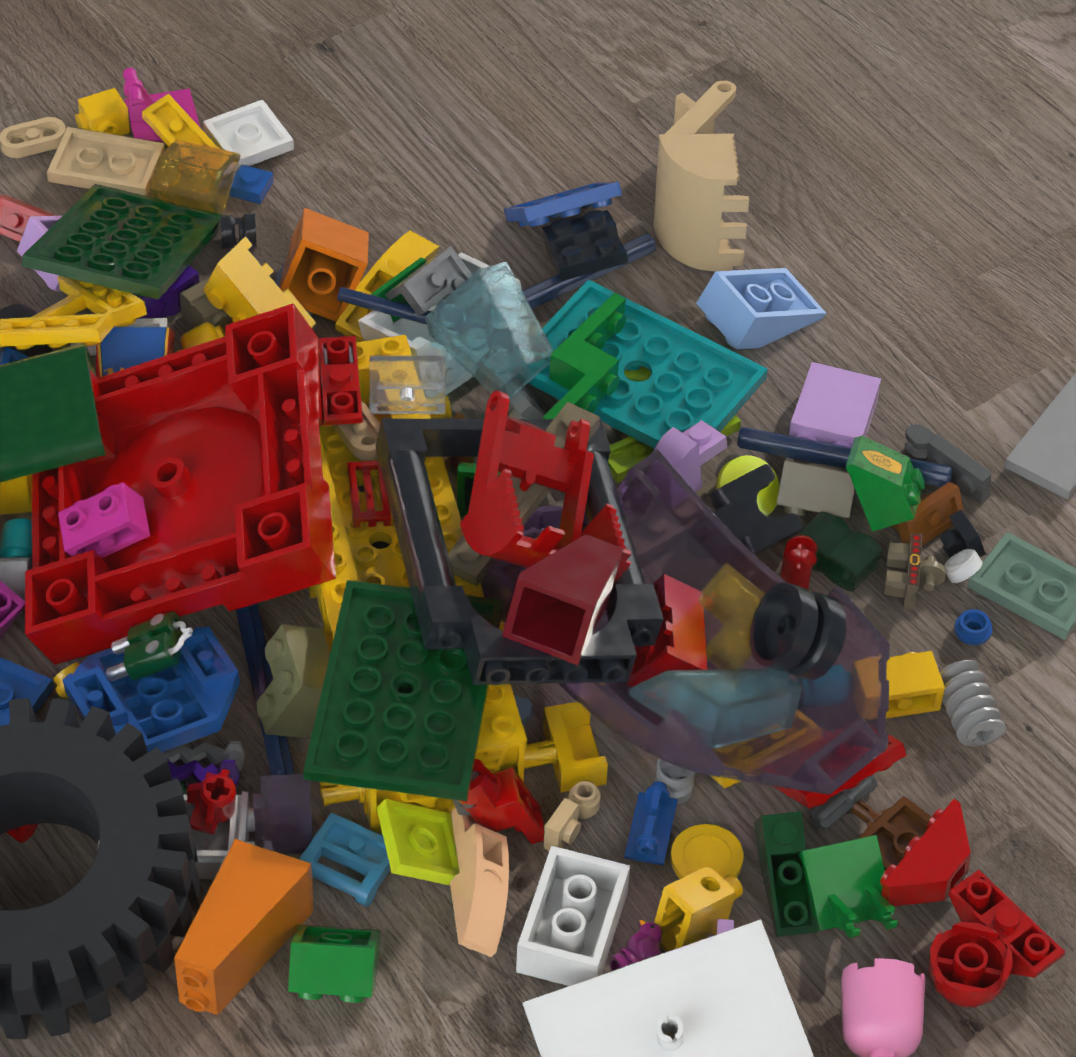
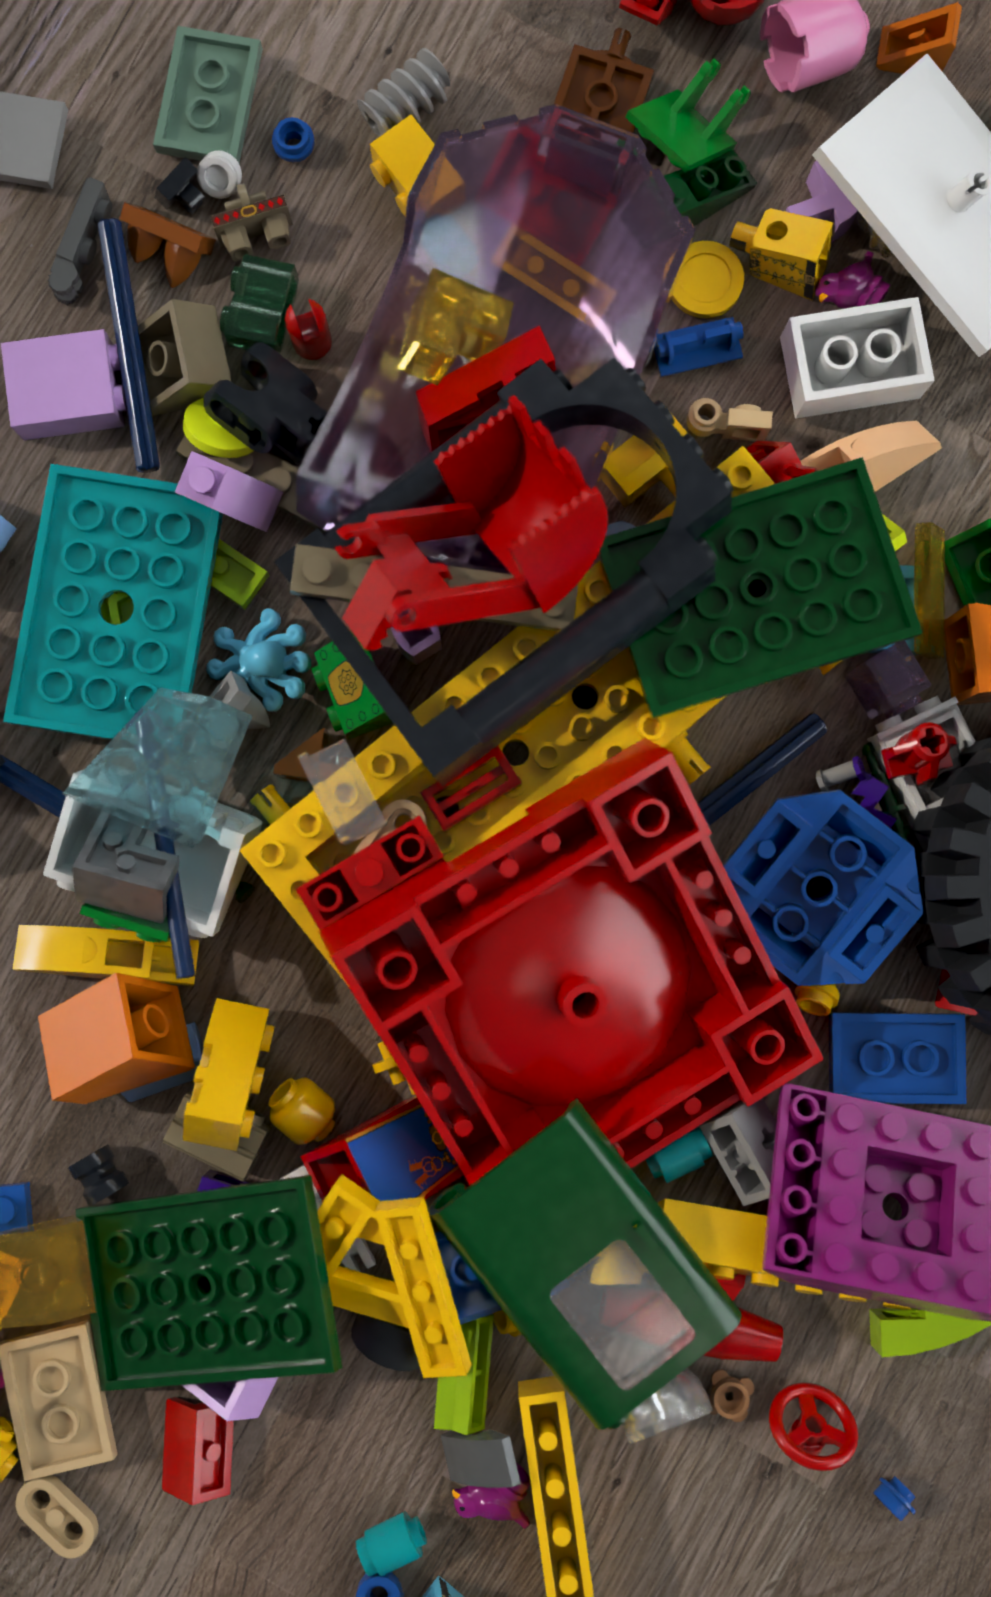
camera: 115 degrees left, 35 degrees up
(104, 522) = (668, 1045): dark pink brick -> none
(150, 647) = (787, 907): dark green piece -> none
(298, 666) = (739, 741): olive brick -> none
(353, 895) = (929, 589): none -> clear yellow tile
(563, 598) = (618, 421): dark red slope -> none
(583, 365) = (162, 647): green bracket -> none
(724, 703) = (571, 292): clear light blue wedge -> none
(797, 631) = (473, 227): black wheel -> none
(884, 483) = (164, 269): green slope -> none
(931, 862) = (631, 48): red slope -> none

